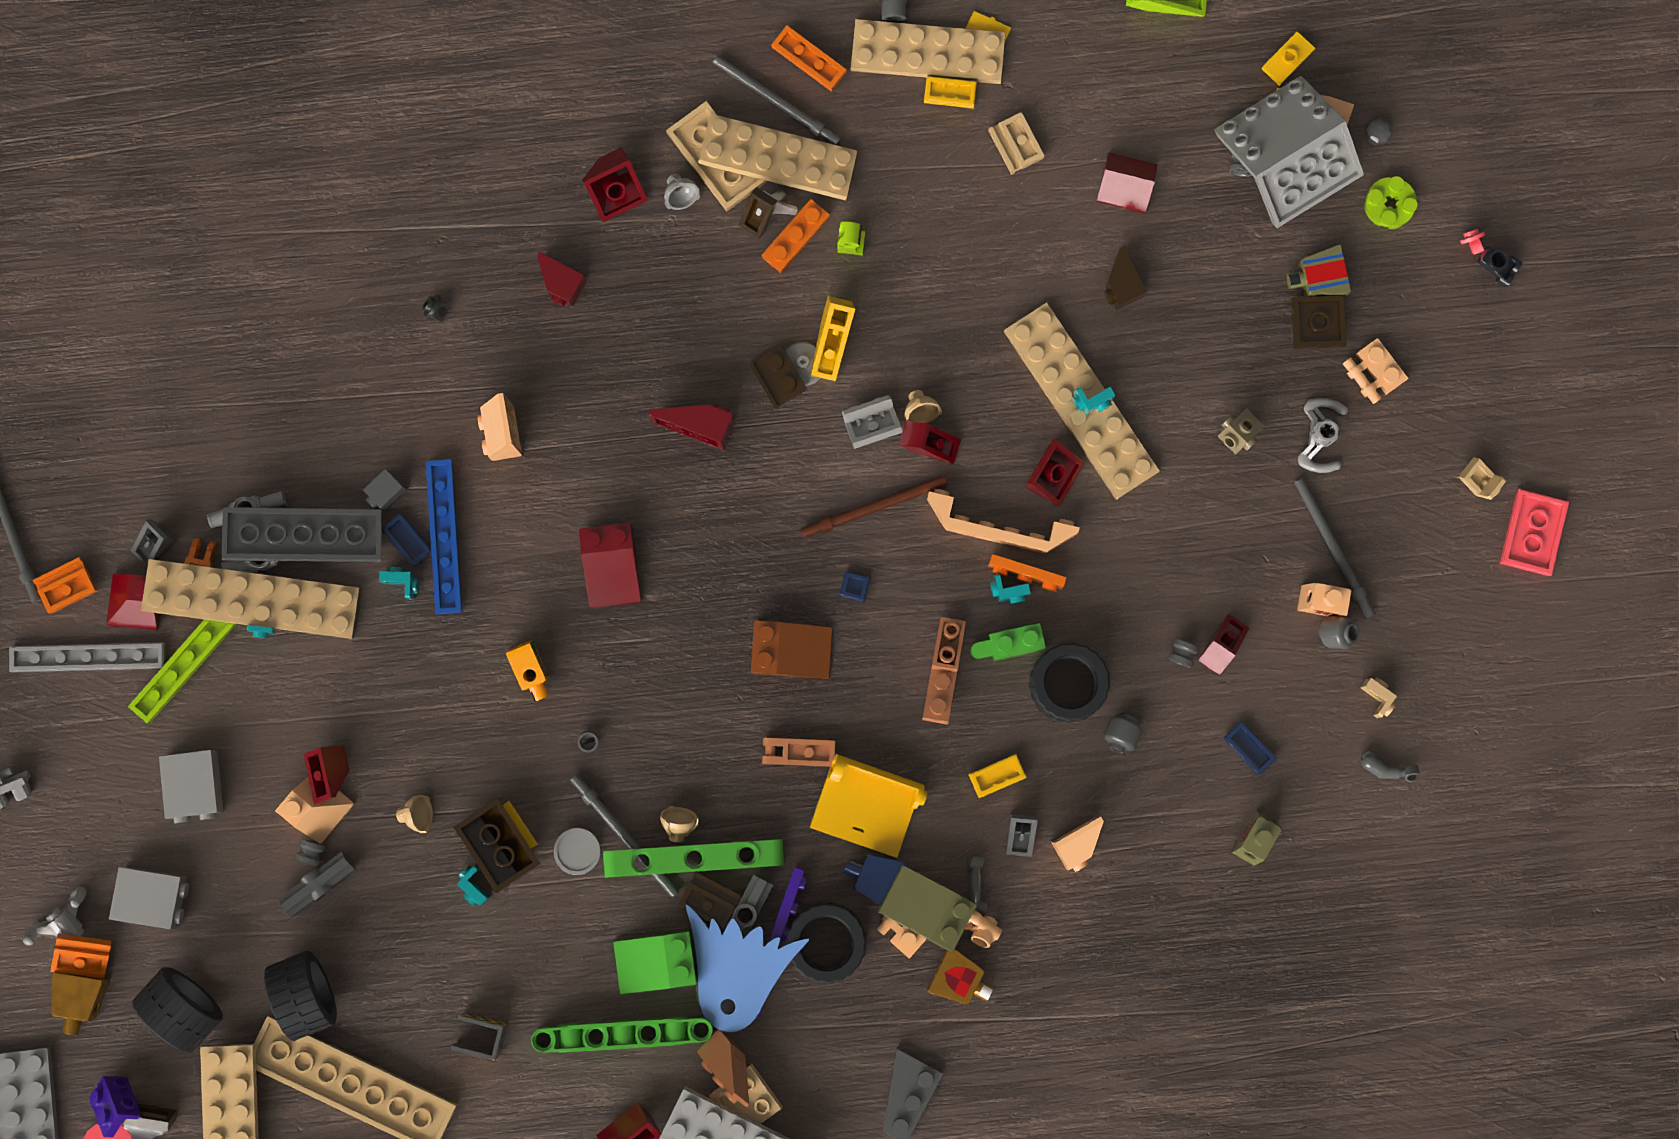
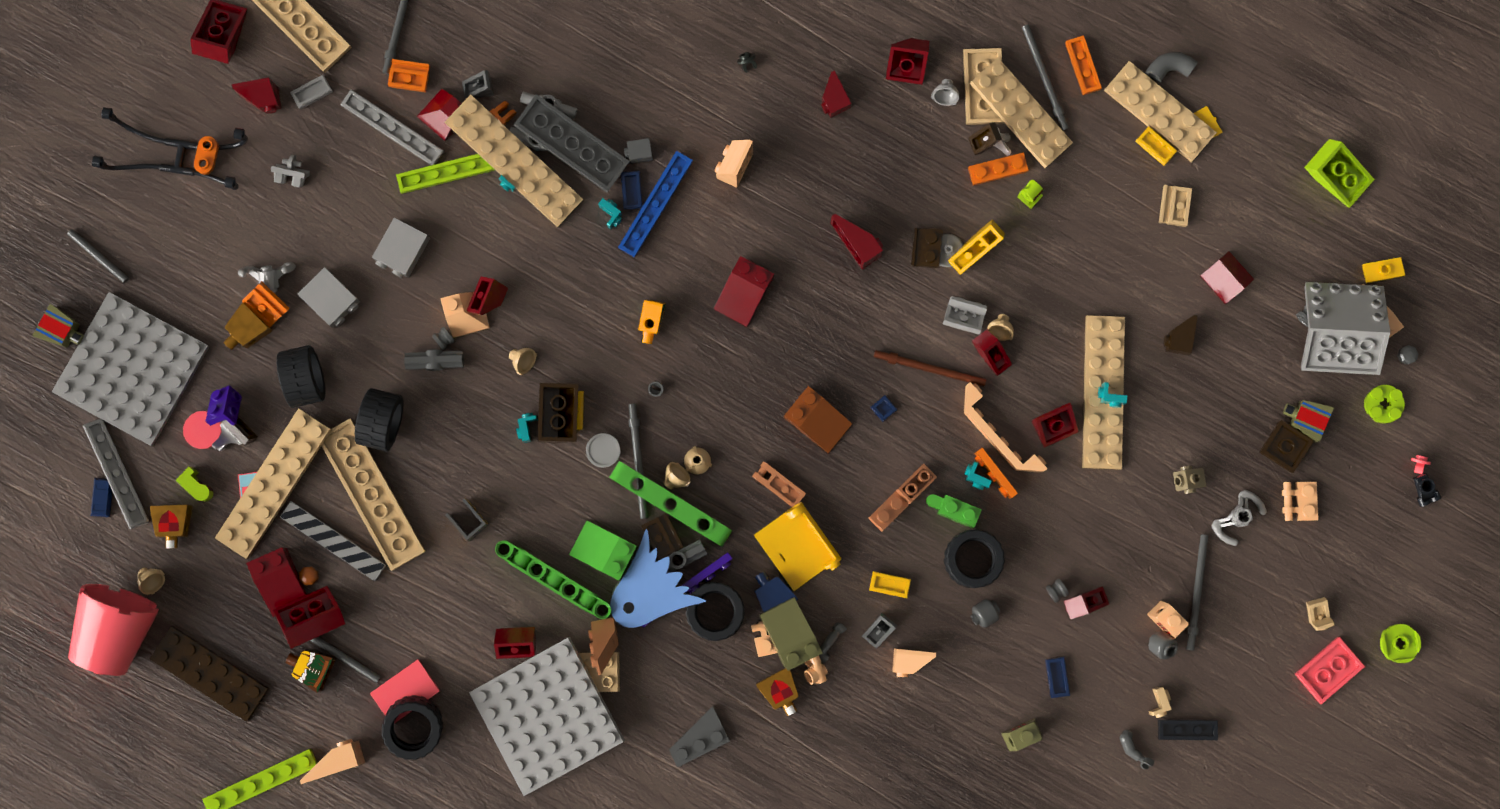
camera: 35 degrees right, 0 degrees up
(700, 789) = (701, 467): none -> tan piece
(1429, 705) = (1187, 730): none -> black plate
(1603, 451) = (1390, 637): none -> lime plate

